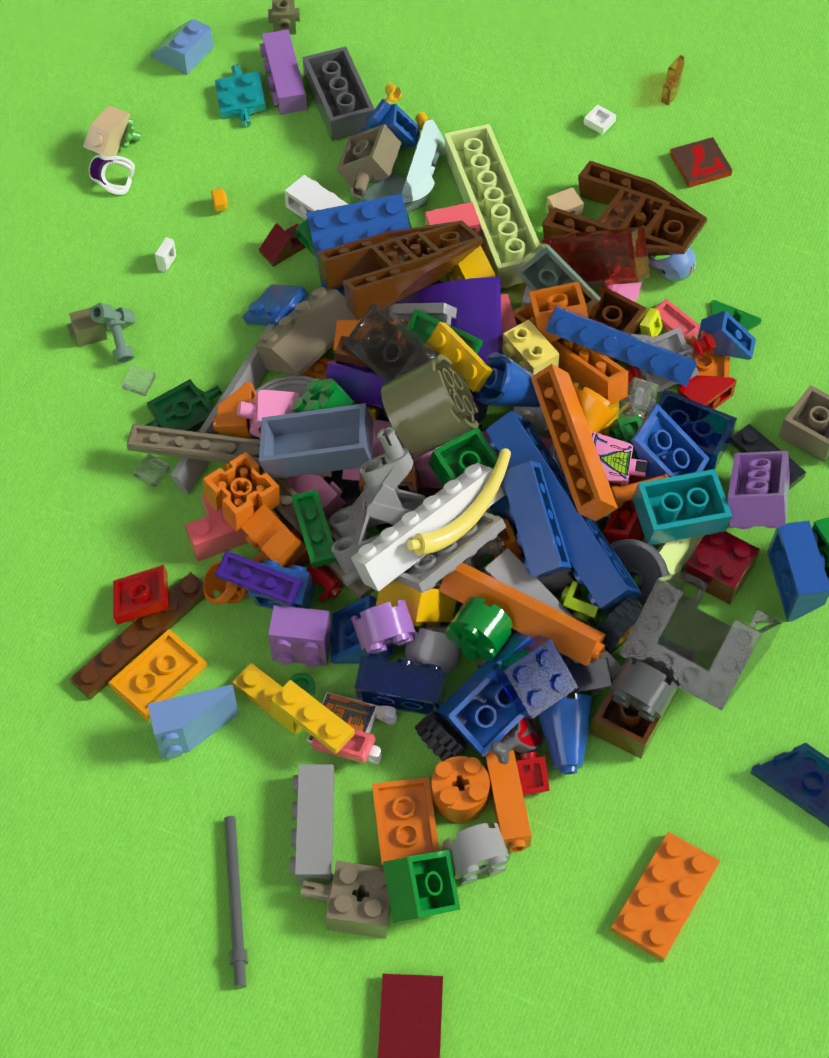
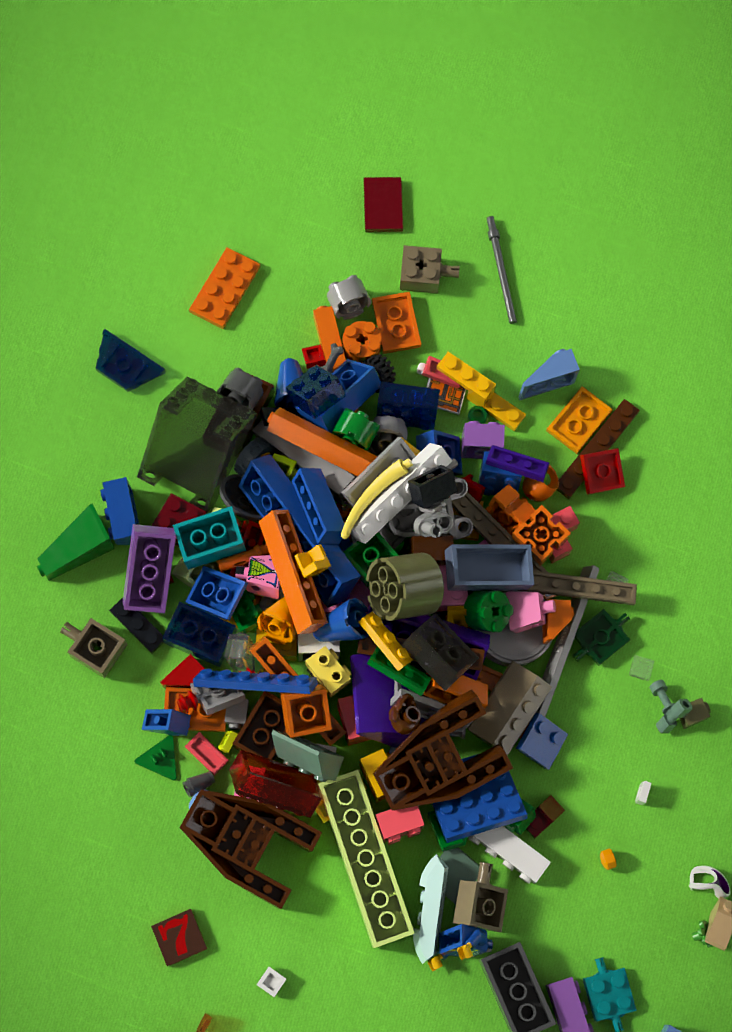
camera: 170 degrees right, 15 degrees up
(314, 528) = (483, 514): green plate -> none
(314, 824) = (456, 316): light grey brick -> none
(382, 513) = (432, 486): none -> black brick
(384, 626) = (423, 427): medium lavender brick -> none
(421, 885) = (383, 268): green brick -> none
(440, 285) = (405, 715): none -> reddish brown head
(548, 439) = (313, 561): none -> yellow panel
(566, 200) = (302, 868): tan panel -> none
(686, 289) = (195, 783): none -> dark grey cone

